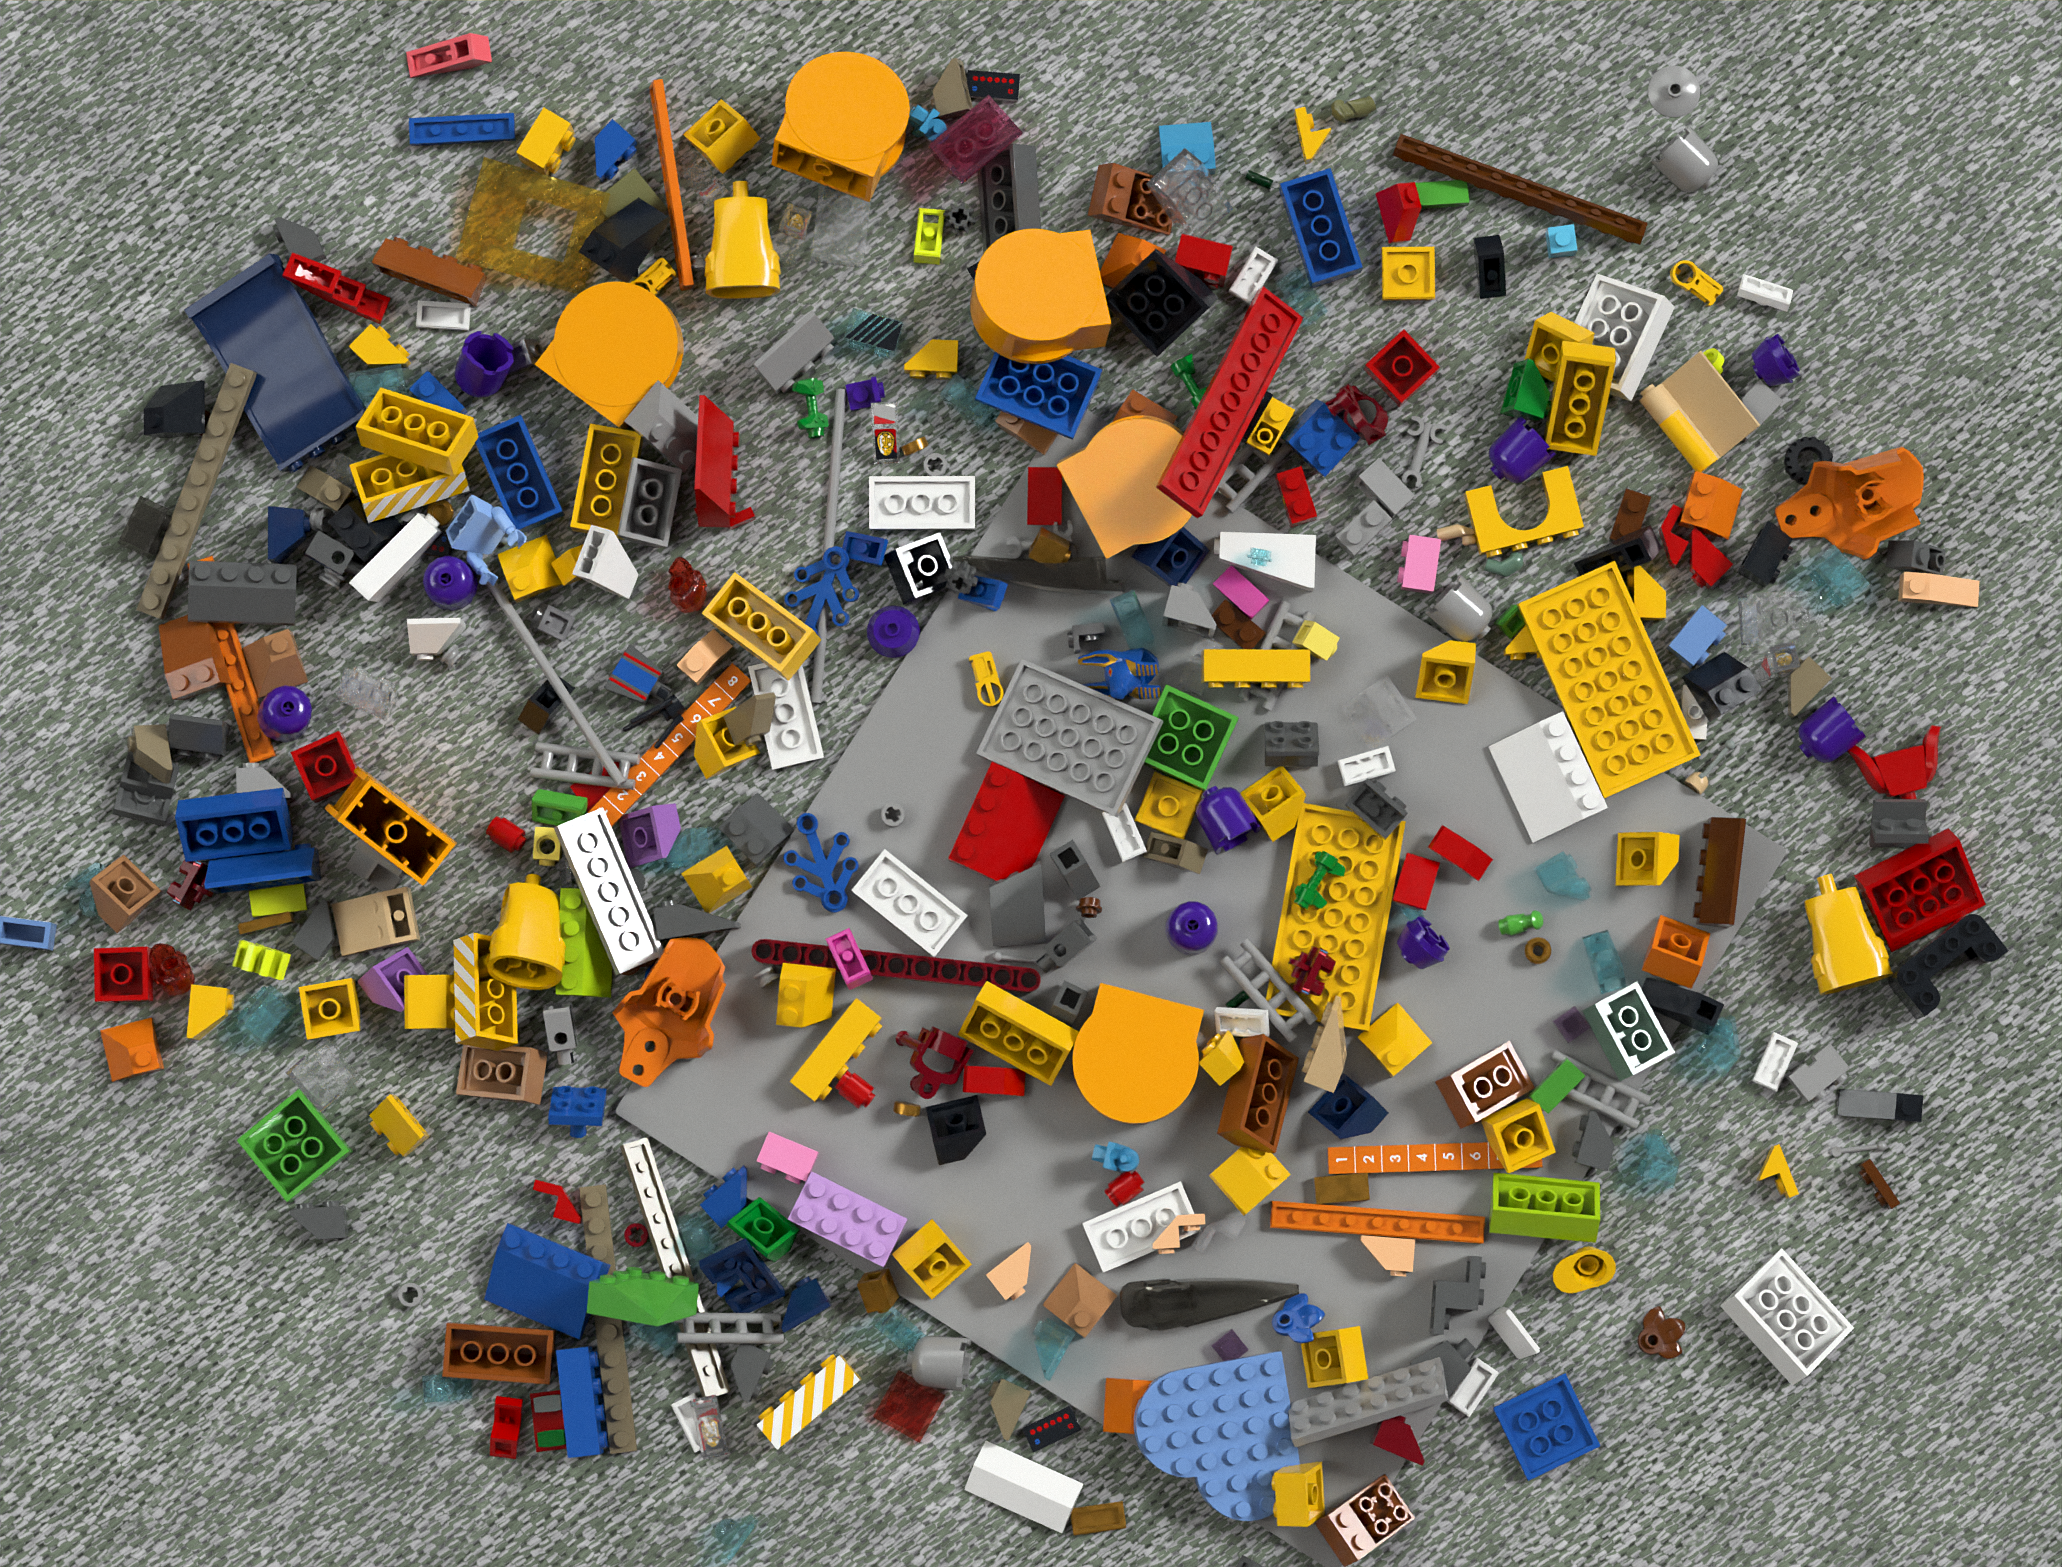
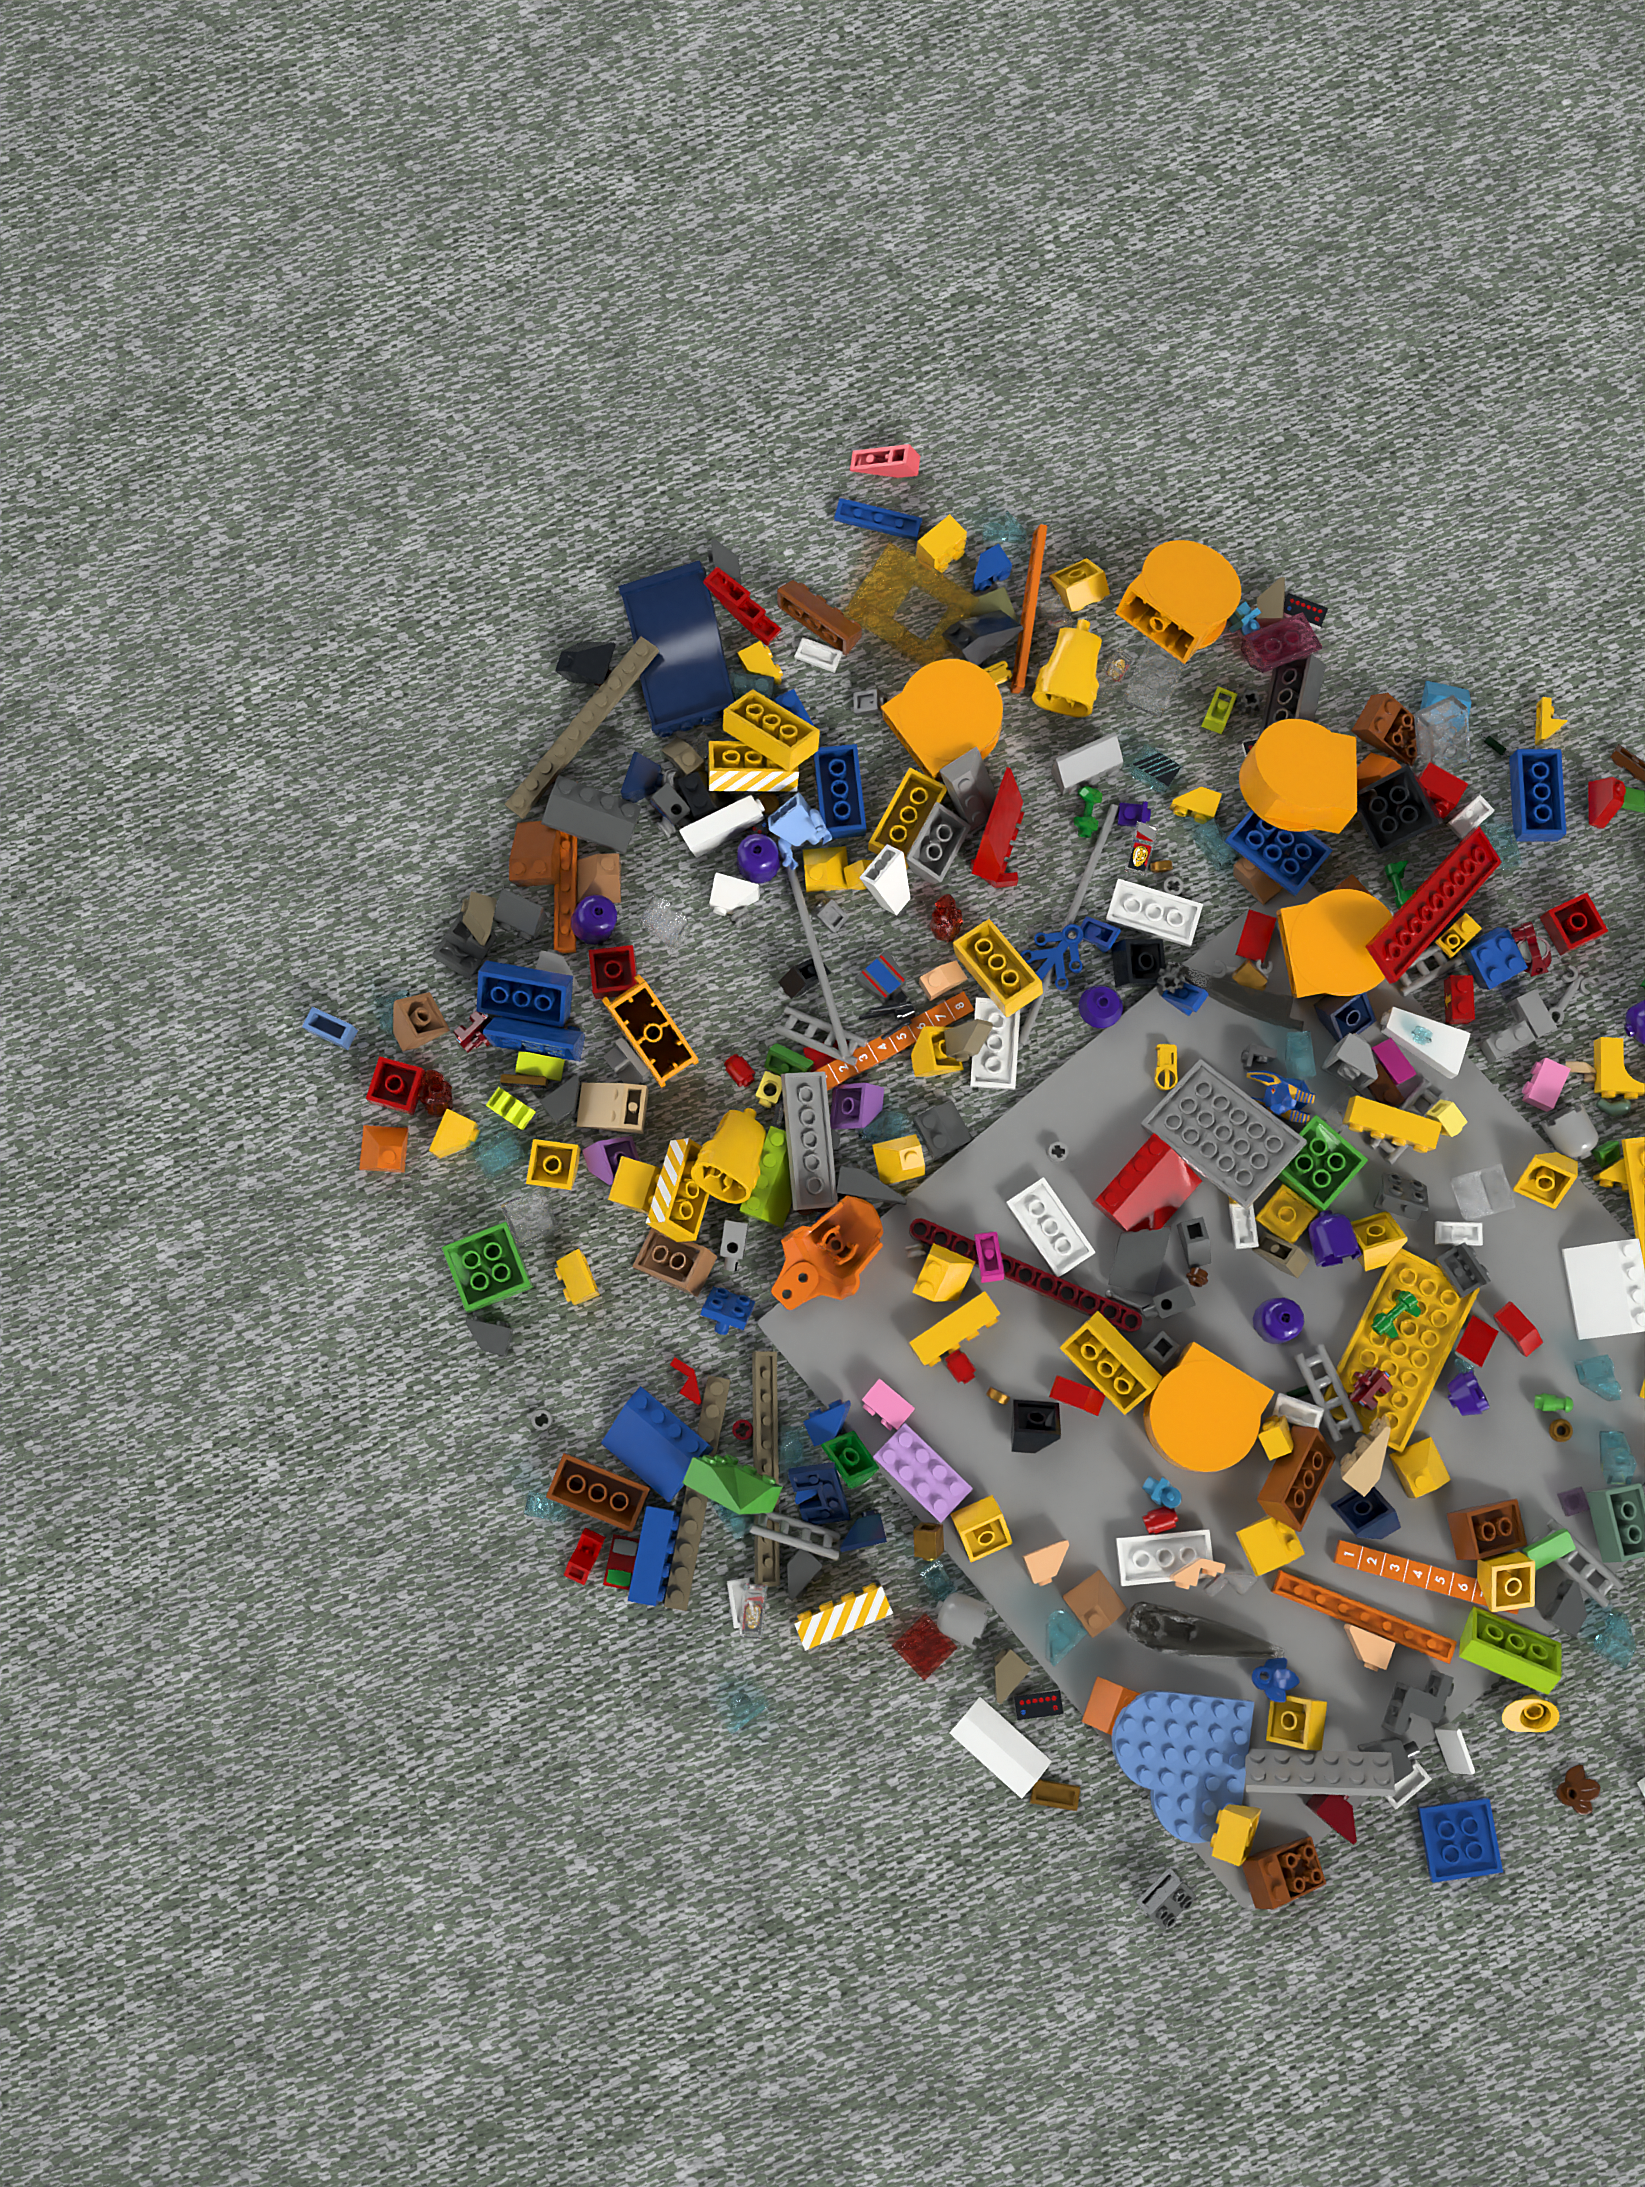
camera: 15 degrees right, 5 degrees down
(145, 528) = (532, 743): clear smoke brick -> none
(483, 364) = (839, 697): dark purple cylinder -> none
(622, 97) = (1009, 532): none -> clear light blue slope
(823, 867) = (987, 1176): blue plant -> none
(929, 1080) = (1045, 1350): dark red piece -> none
(1230, 1346) = (1209, 1683): clear purple plate -> none
(1341, 1188) = (1341, 1578): pearl gold tile -> none
(1352, 109) = (1586, 713): olive arm -> none
(1408, 273) = (1596, 853): yellow plate -> none

